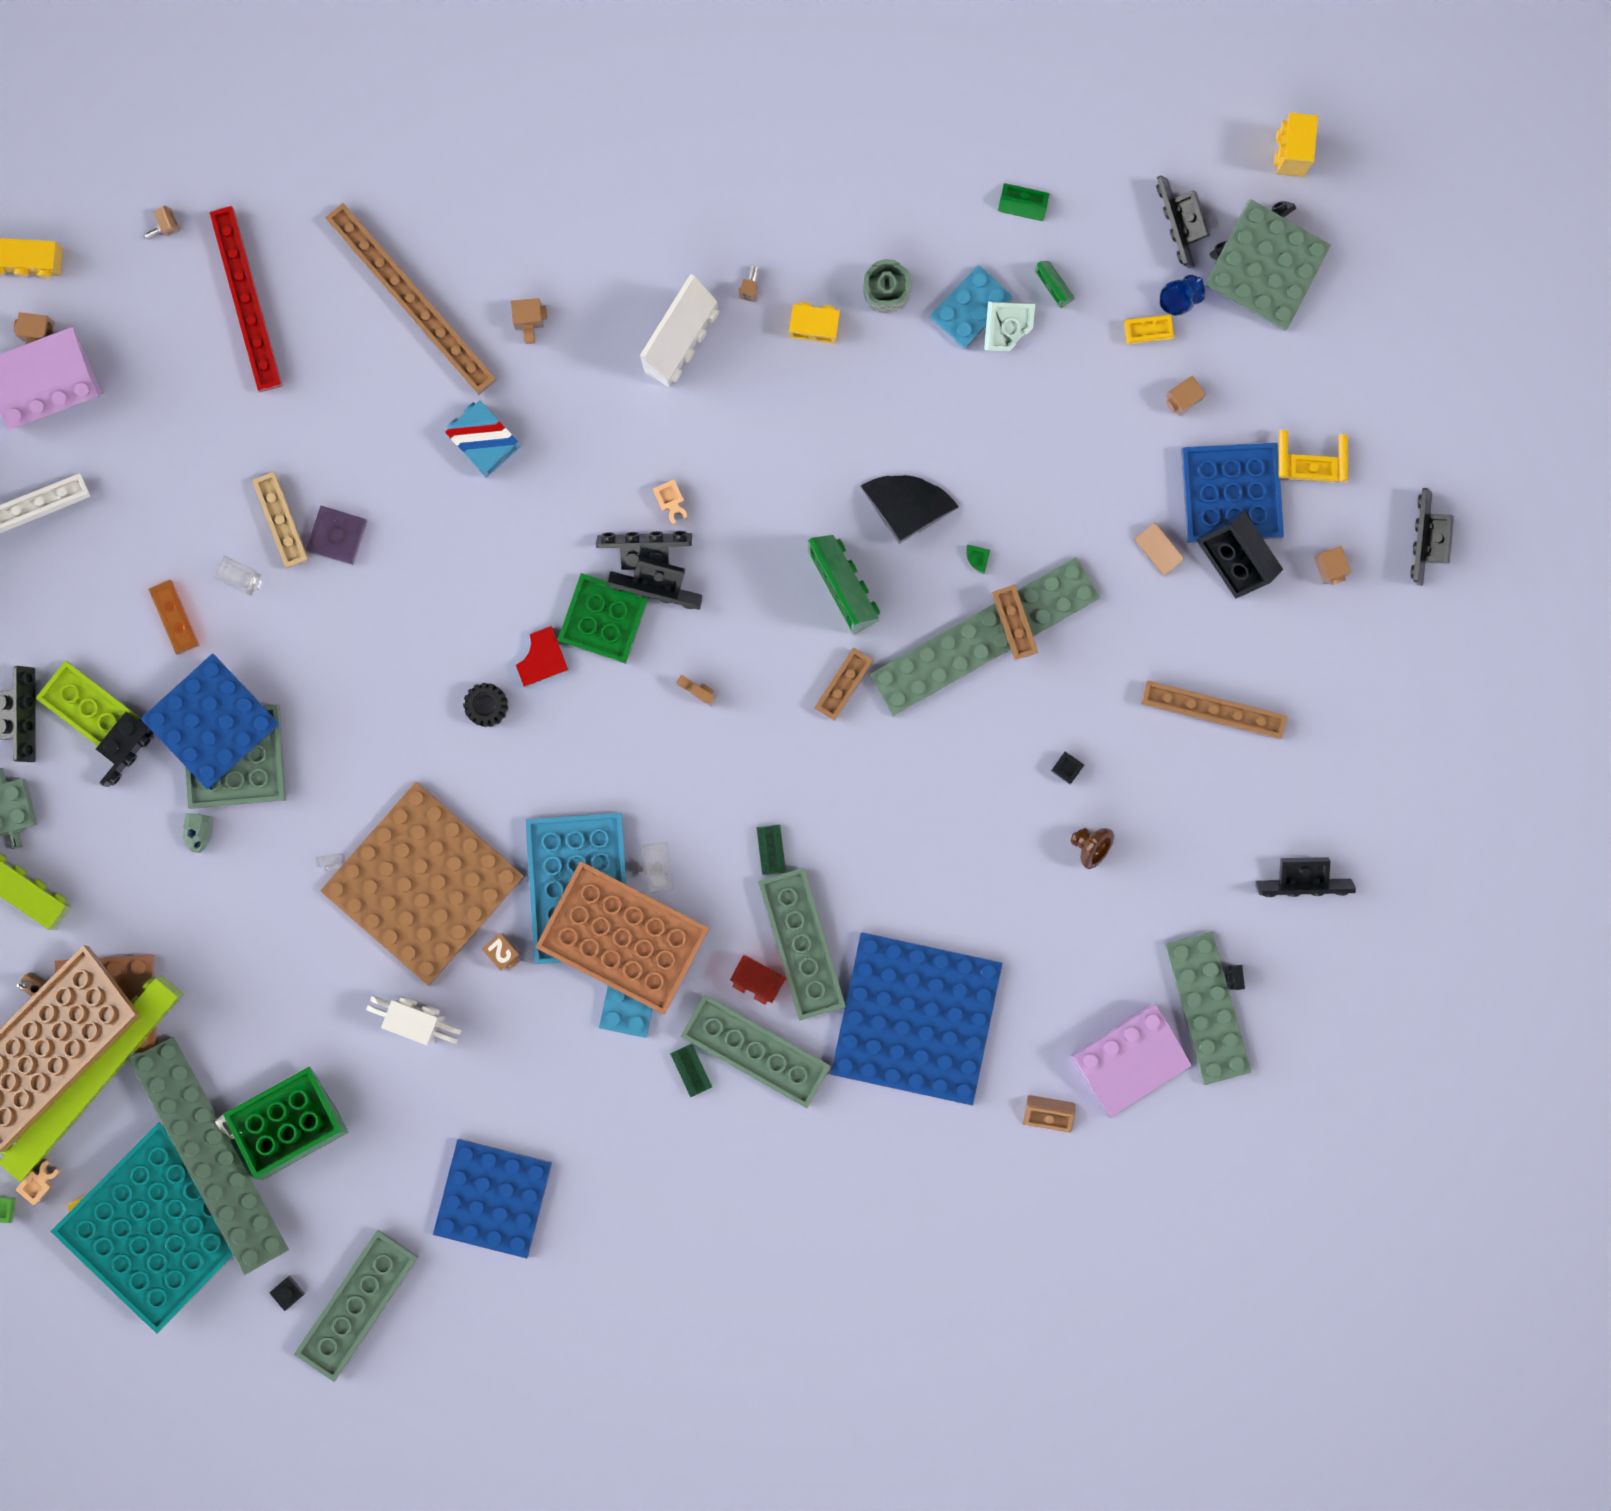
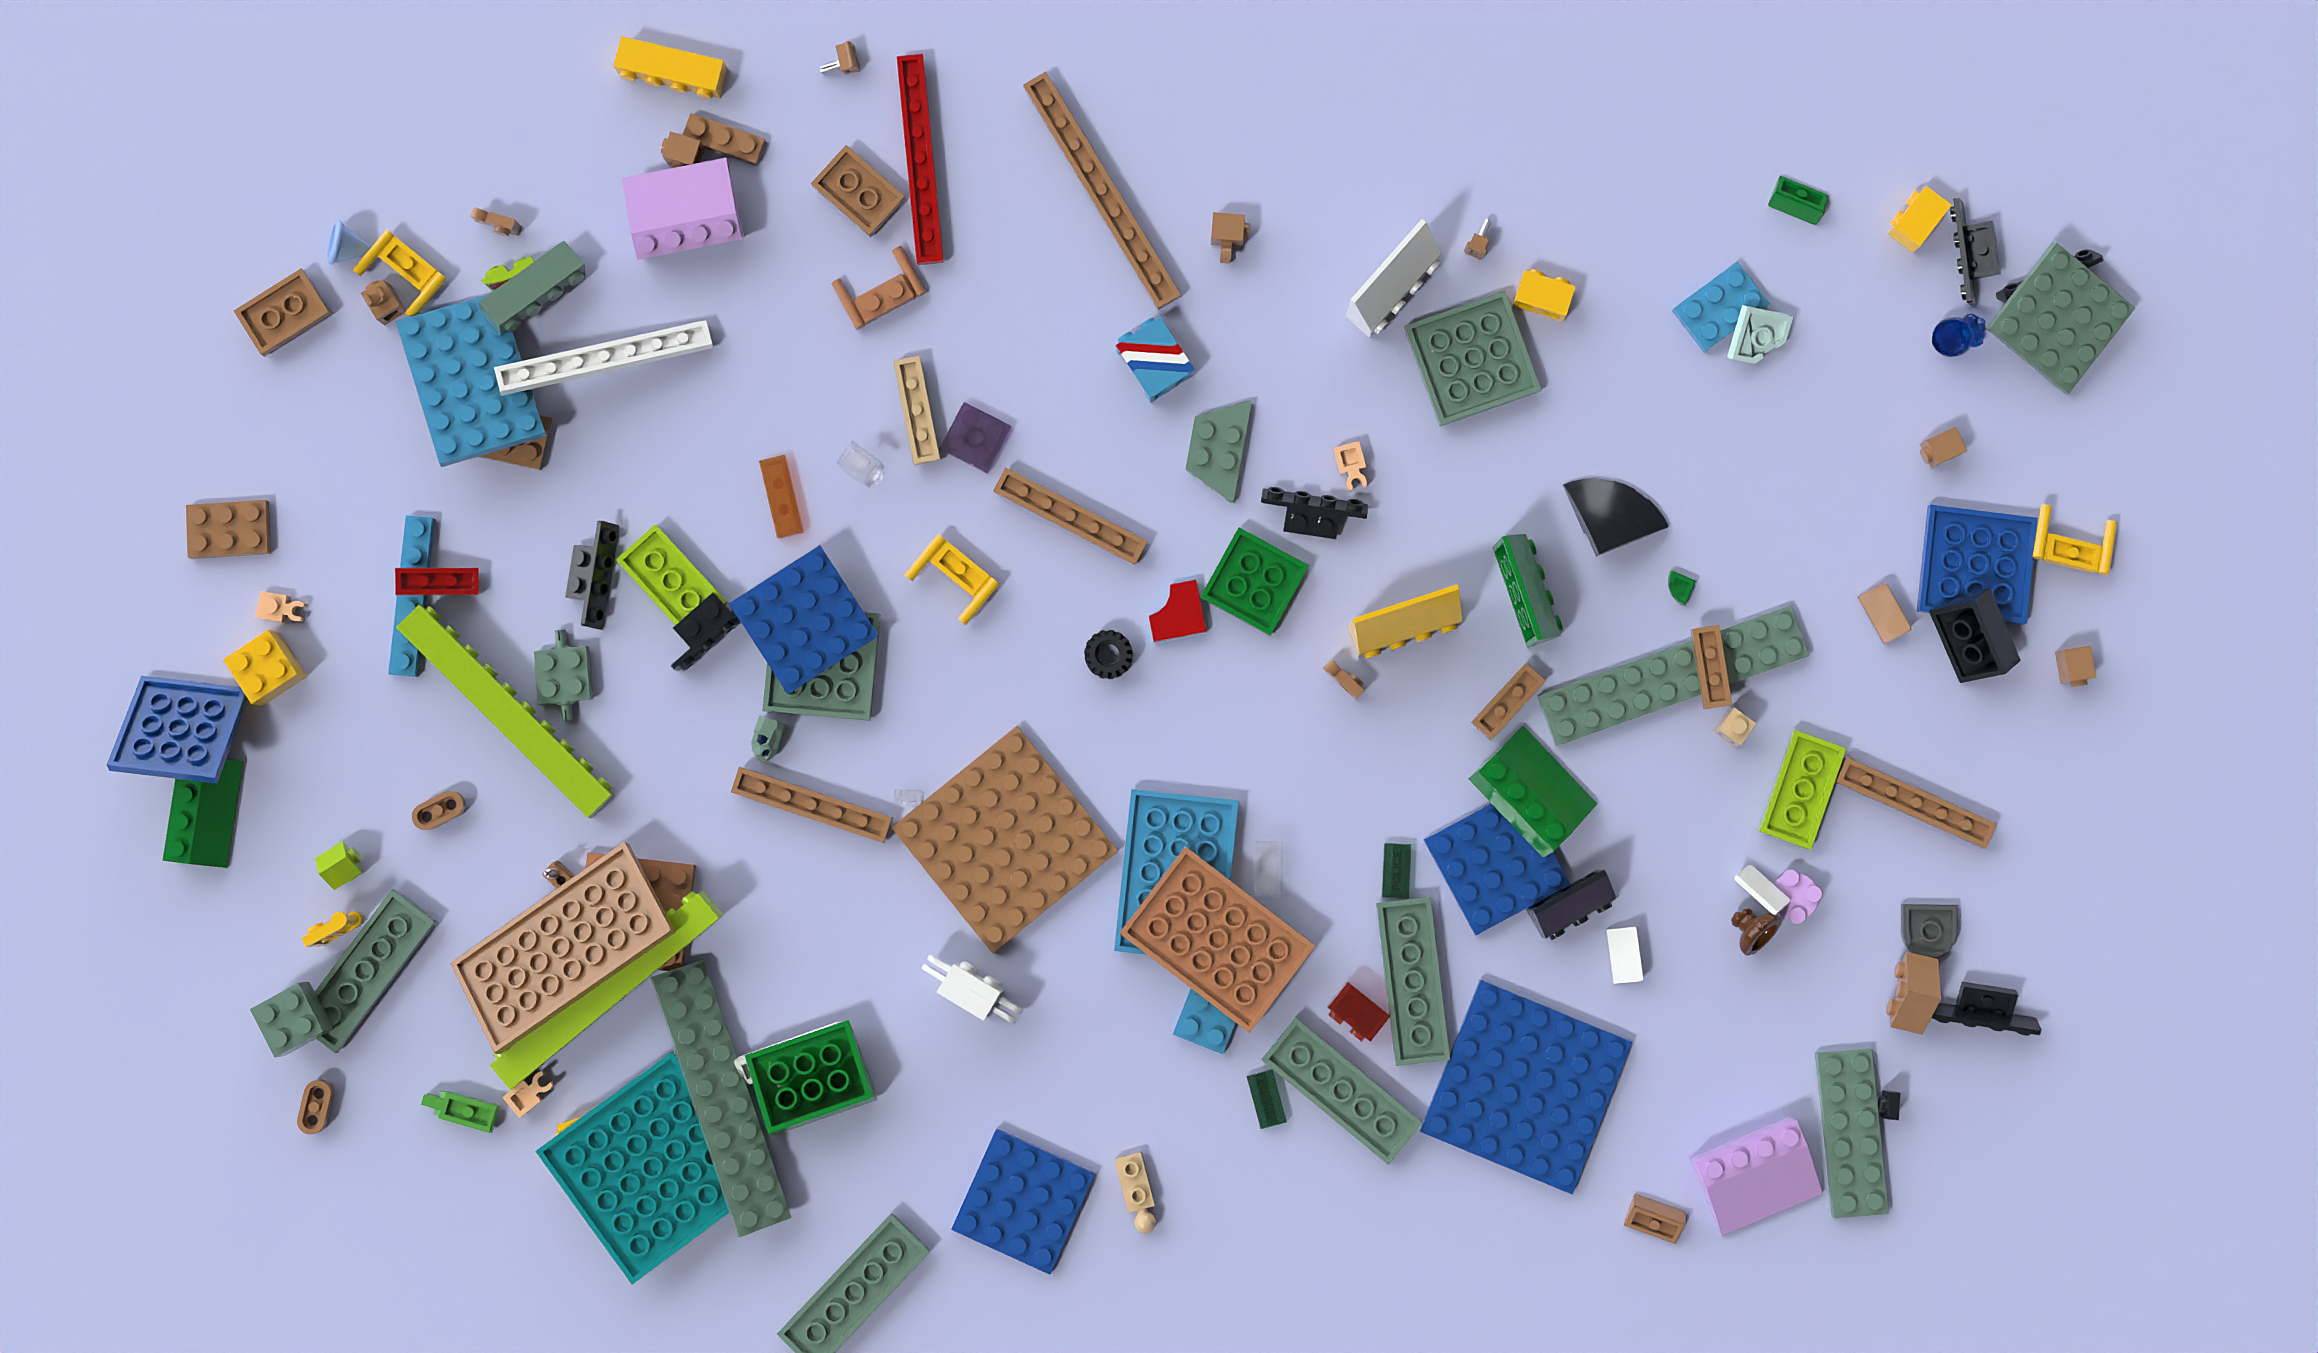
camera: 15 degrees right, 0 degrees up
(70, 311) = (725, 139): none -> medium nougat plate
(195, 336) = (858, 191): none -> medium nougat plate
(235, 425) = (883, 297): none -> nougat plate
(246, 883) = (811, 804): none -> medium nougat plate
(287, 1293) = (779, 1265): black plate -> none
(342, 654) = (958, 569): none -> yellow plate
(431, 589) = (1070, 516): none -> medium nougat plate
(502, 952) = (1080, 932): medium nougat brick -> none
(552, 506) = (1218, 448): none -> sand green wing
(590, 1171) = (1136, 1190): none -> tan plate
(656, 581) = (1321, 551): black bracket -> none
(740, 629) = (1406, 621): none -> yellow slope
(761, 389) = (1472, 358): none -> sand green plate
(858, 826) = (1492, 868): none -> blue plate
(878, 758) = (1533, 792): none -> green slope
(886, 286) = (1631, 268): sand green brick -> none
(929, 852) = (1572, 904): none -> black slope
(983, 888) = (1624, 955): none -> white slope
(1044, 671) = (1734, 727): none -> tan brick
(1054, 283) = (1817, 297): green slope -> none
(1067, 768) = (1741, 838): black plate -> none
(1093, 809) = (1762, 889): none -> white slope
(1113, 716) = (1802, 789): none -> lime plate
(1122, 810) = (1802, 893): none -> lavender piece
(1130, 200) = (1919, 218): none -> yellow brick
(1148, 329) = (1914, 366): yellow plate -> none
(1240, 876) = (1915, 994): none -> medium nougat brick
(1245, 817) = (1929, 928): none -> dark grey tile
(1296, 144) = (2116, 189): yellow brick -> none
(1433, 537) = (2194, 653): bracket -> none

